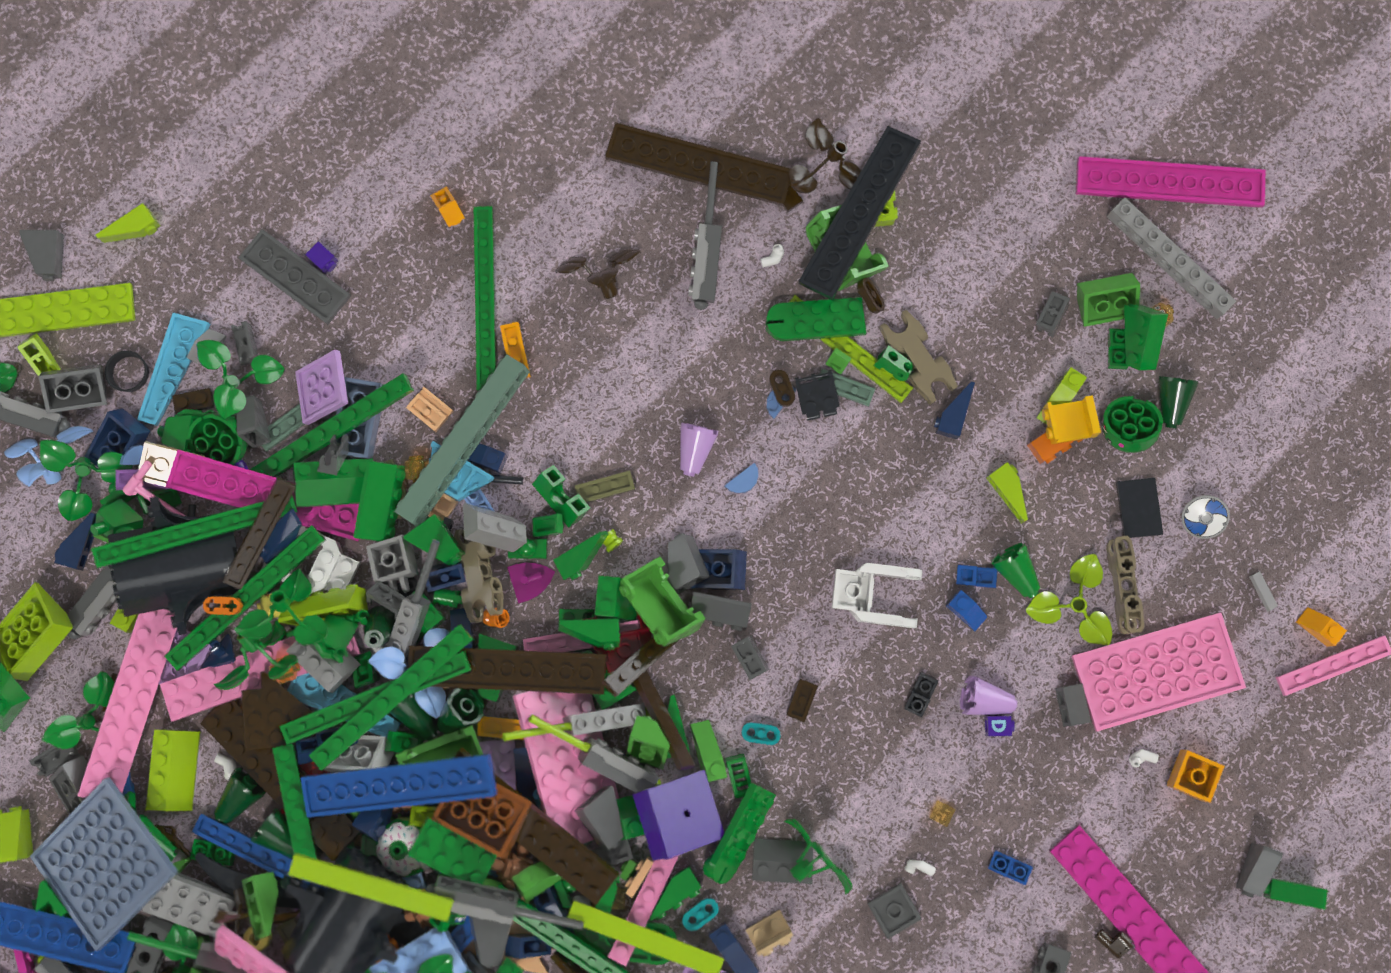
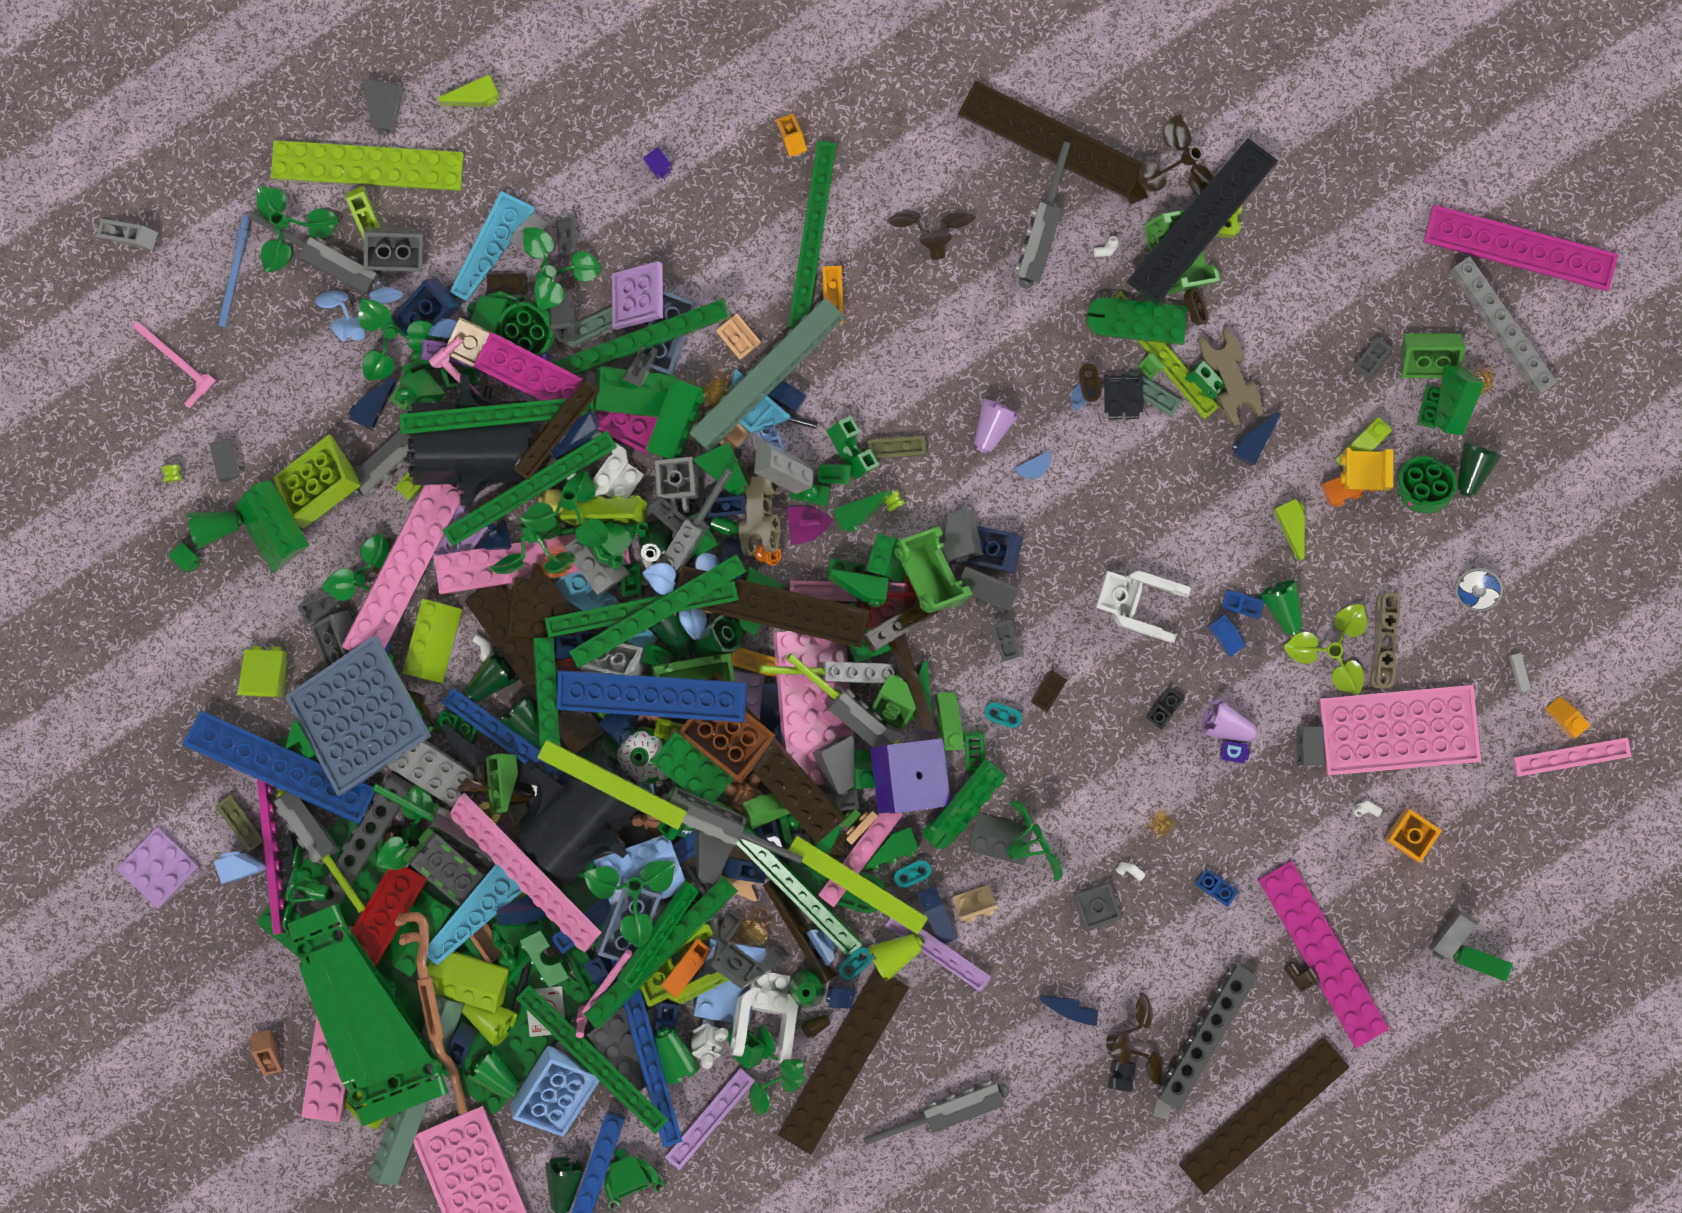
camera: 10 degrees right, 5 degrees up
(111, 363) = (437, 226): black tyre -> none
(222, 601) = (509, 487): orange beam -> none
(294, 276) = (627, 177): dark grey plate -> none
(1139, 508) = (1417, 568): black tile -> none

